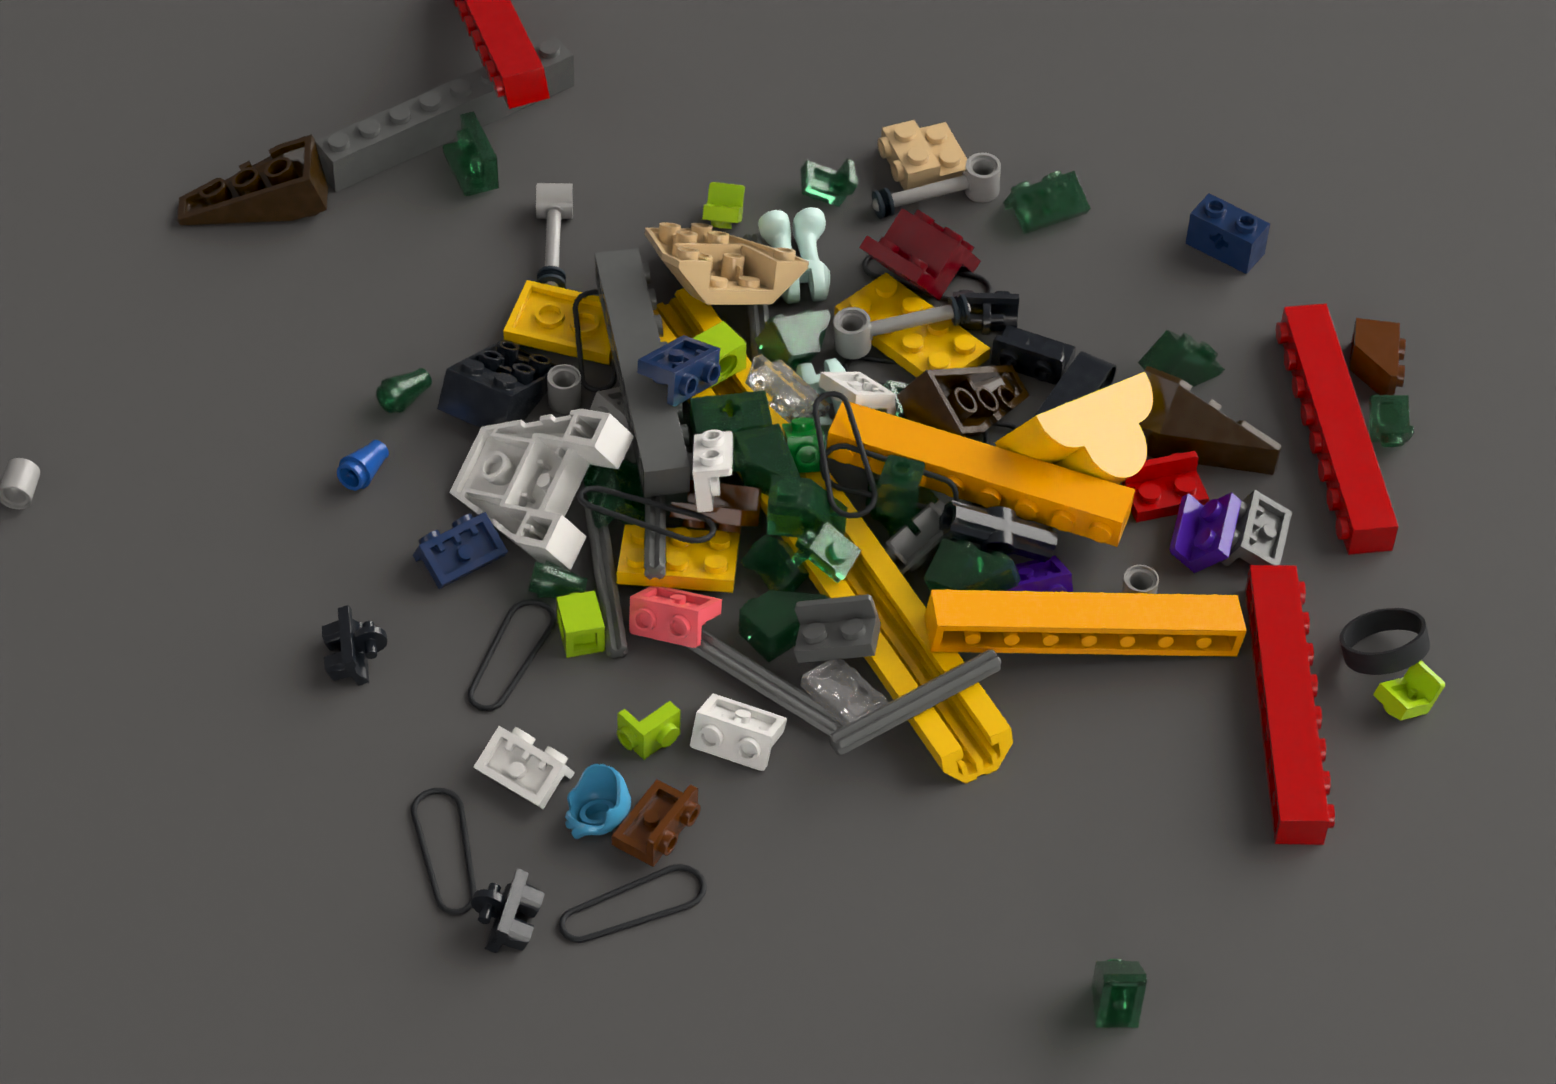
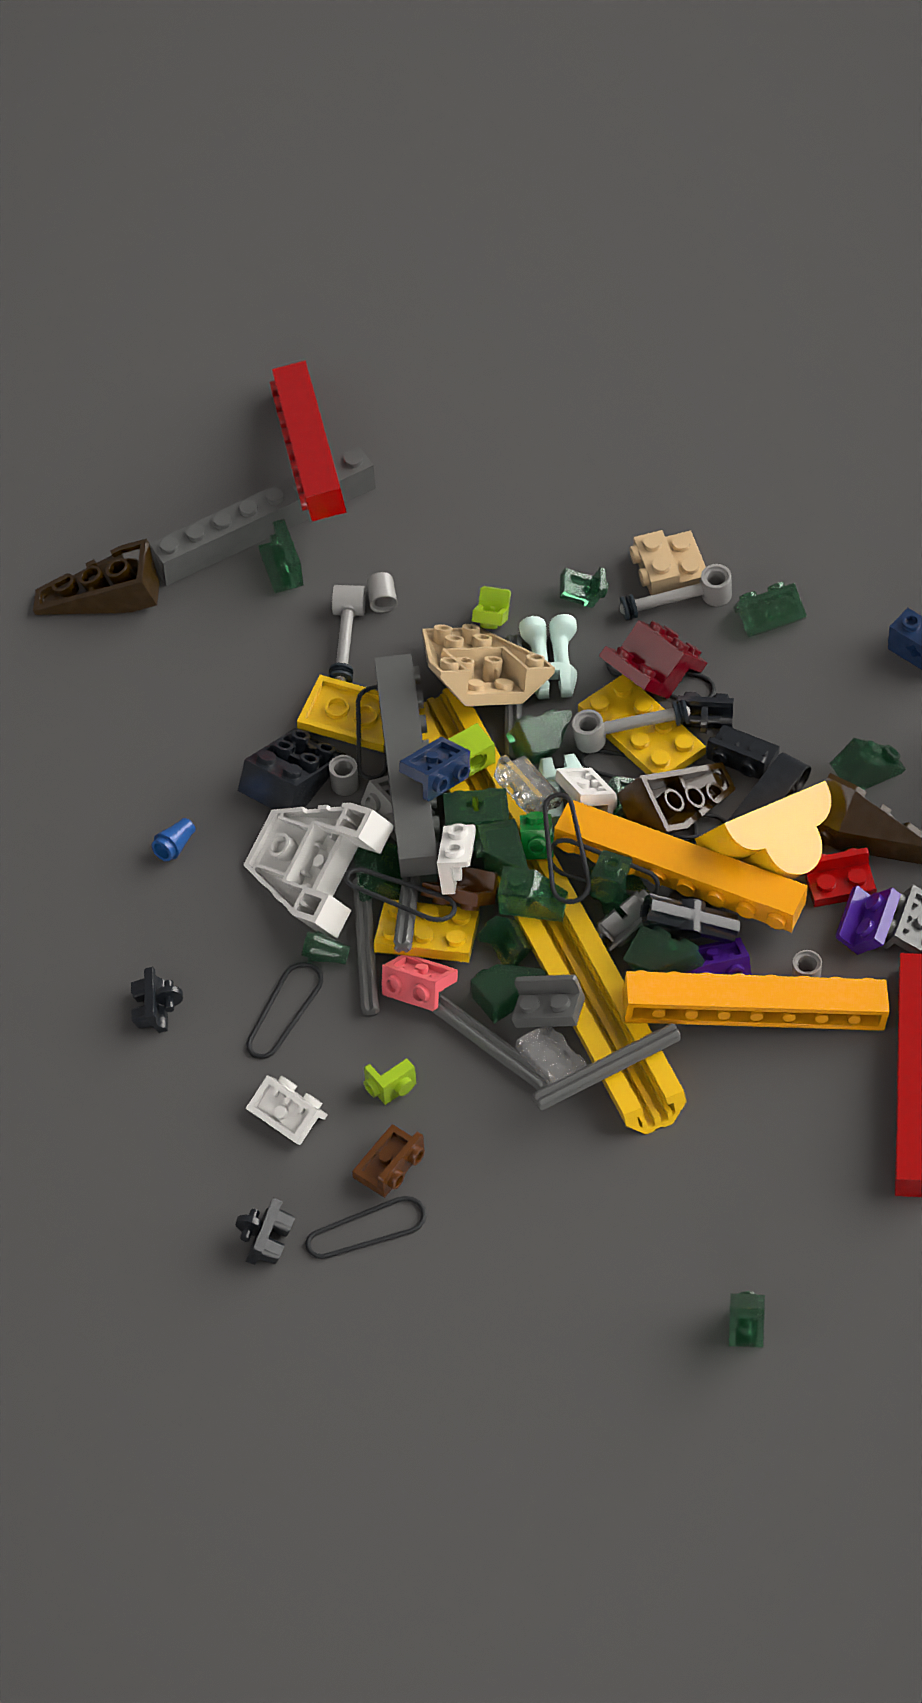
camera: 10 degrees right, 5 degrees up
(402, 390) = (209, 773): clear green cone -> none
(452, 794) = (203, 1177): black piece -> none
(460, 550) = (248, 918): dark blue bracket -> none
(580, 623) = (341, 986): lime brick -> none
(592, 192) = (381, 592): none -> light grey beam
(597, 802) = (342, 1143): dark azure hair -> none
(736, 731) = (461, 1084): white bracket -> none
(827, 550) = (546, 931): clear green bracket -> none

